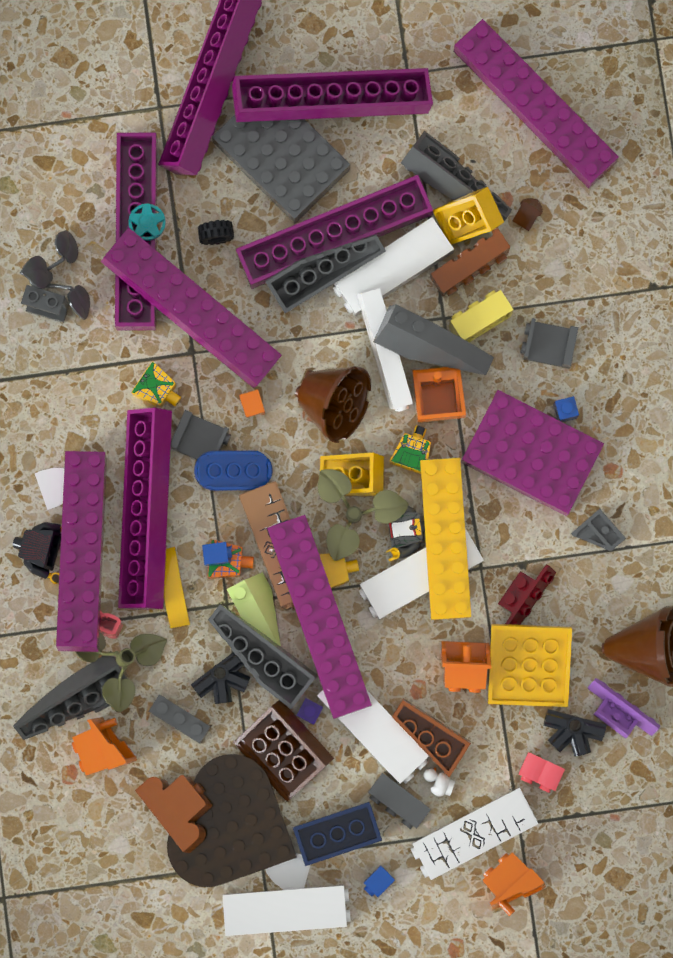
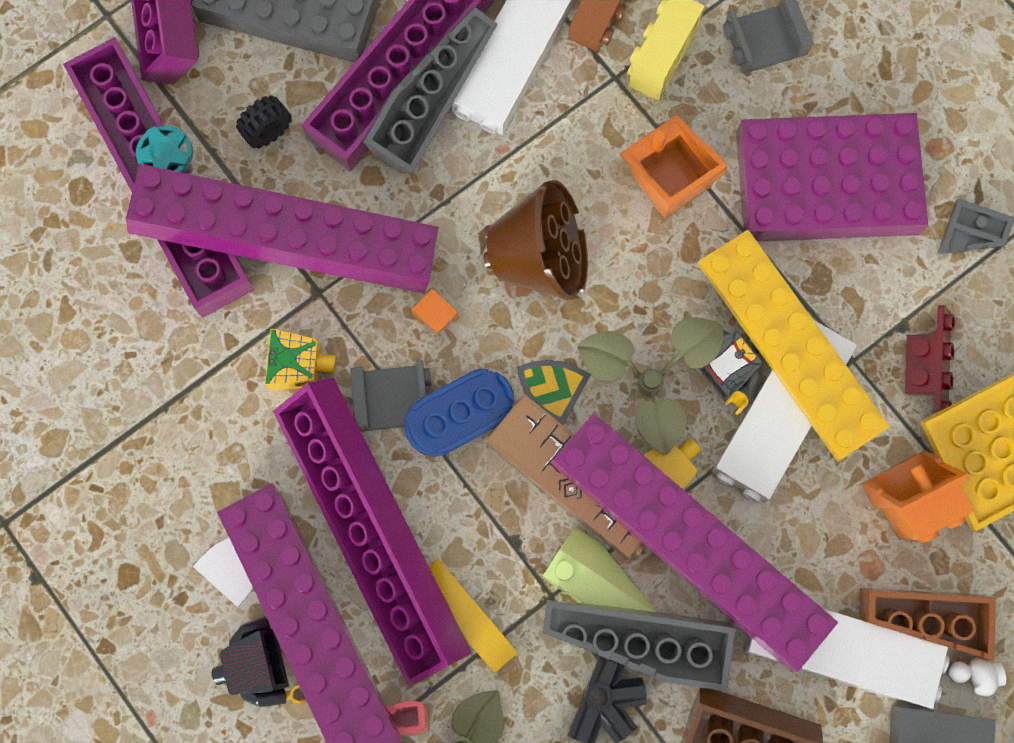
camera: 30 degrees left, 5 degrees down
(39, 275) = (60, 301): dark grey plant -> none
(49, 306) = (88, 333): dark grey panel -> none
(216, 553) = (502, 534): blue brick -> none
(233, 568) = (519, 536): orange torso -> none
(296, 485) = (553, 385): none -> sticker
(309, 711) = (747, 678): dark purple plate -> none
(362, 469) = (627, 313): yellow slope -> none
(388, 362) = (569, 144): white brick -> none
(411, 450) = (677, 259): torso -> none
(429, 343) = (621, 98): dark grey wedge -> none
(566, 409) = (839, 99): blue brick -> none

